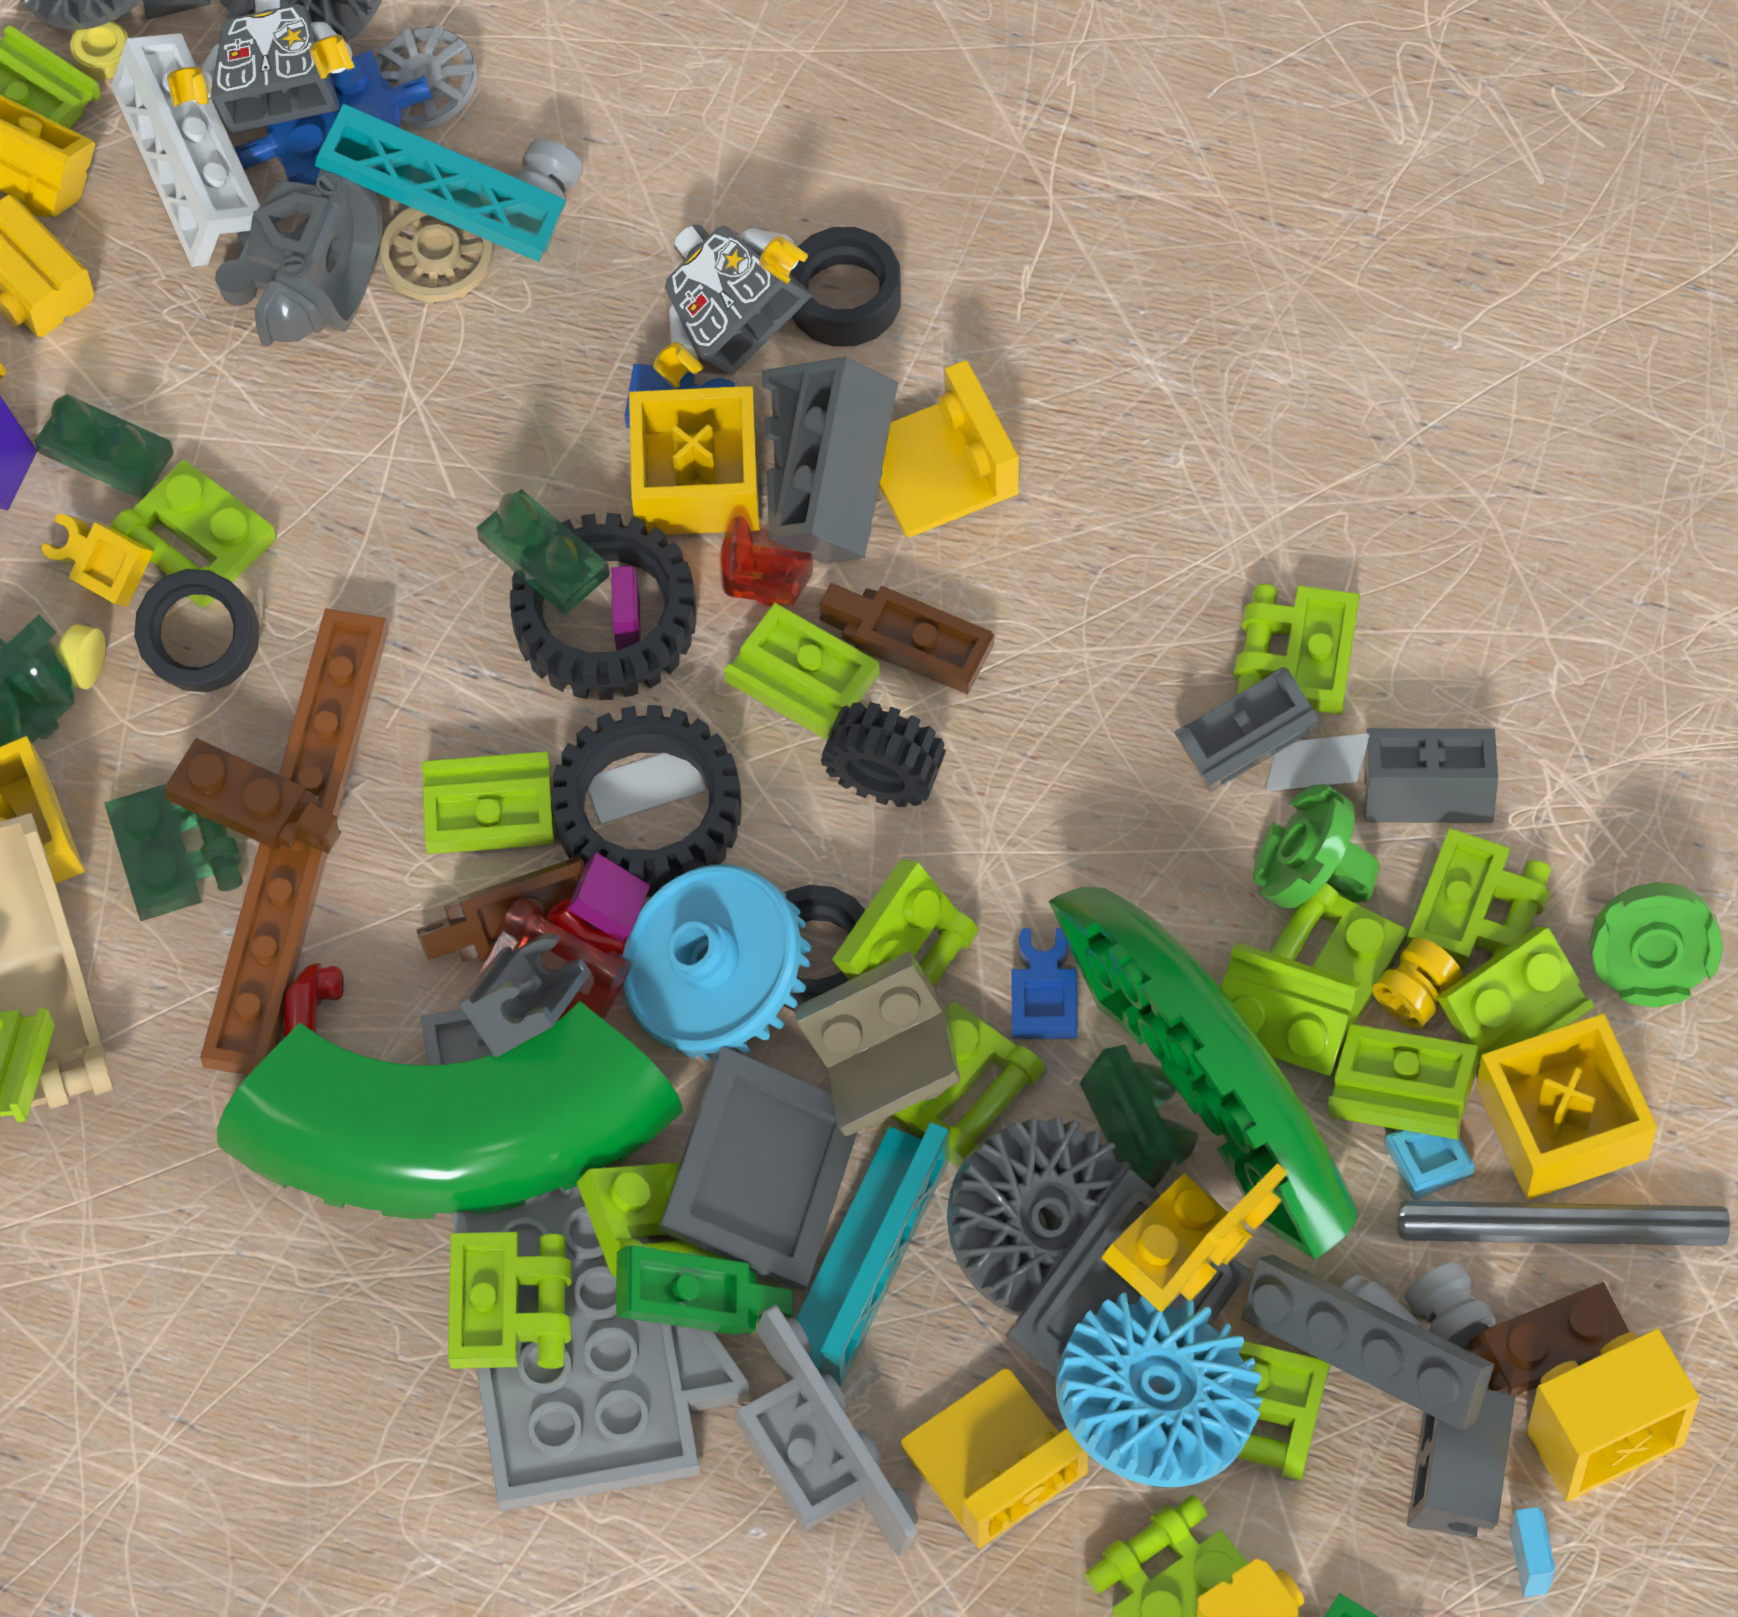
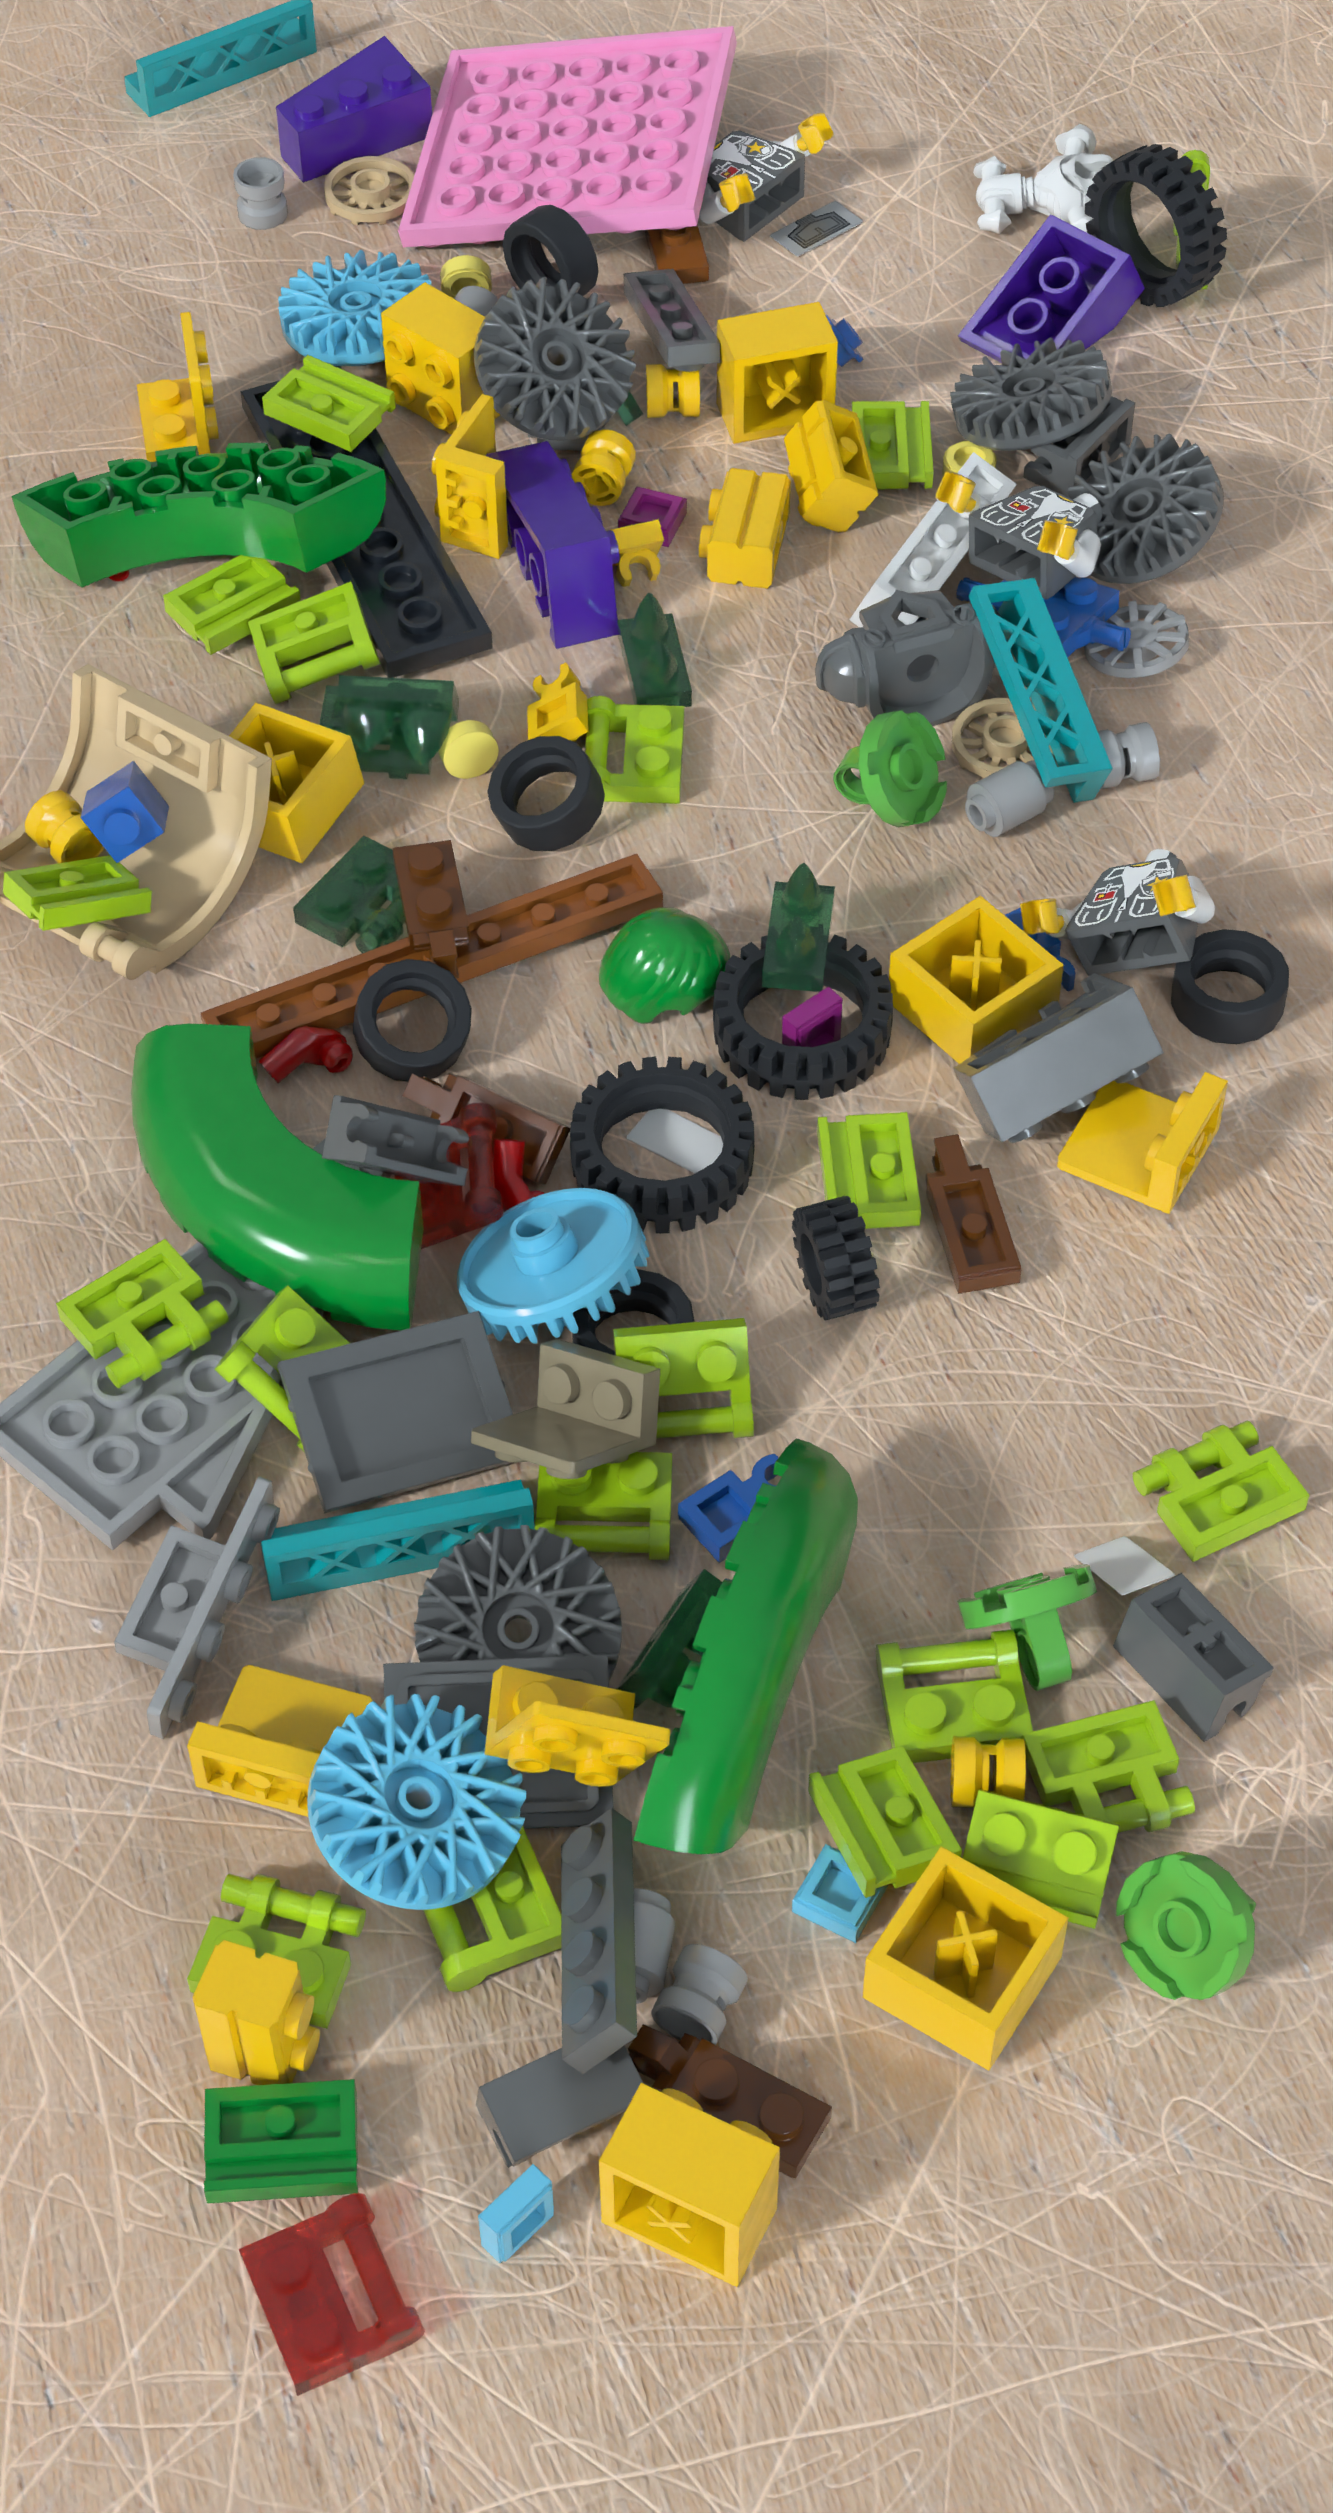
camera: 50 degrees right, 10 degrees down
(392, 867) = (414, 976): none -> black tyre
(414, 358) = (895, 769): none -> bright green tile
(461, 673) = (662, 964): none -> green piece
(487, 802) = (565, 1046): lime plate -> none
(512, 296) = (1007, 798): none -> light grey brick
(608, 897) = (545, 1161): magenta tile -> none
(693, 1291) = (245, 1425): green hinge -> none
(761, 571) = (927, 1088): clear red plate -> none
(1248, 729) = (1100, 1495): dark grey hinge -> none
(1291, 1006) = (869, 1683): lime plate -> none
(1563, 1223) = (867, 2043): dark grey axle -> none

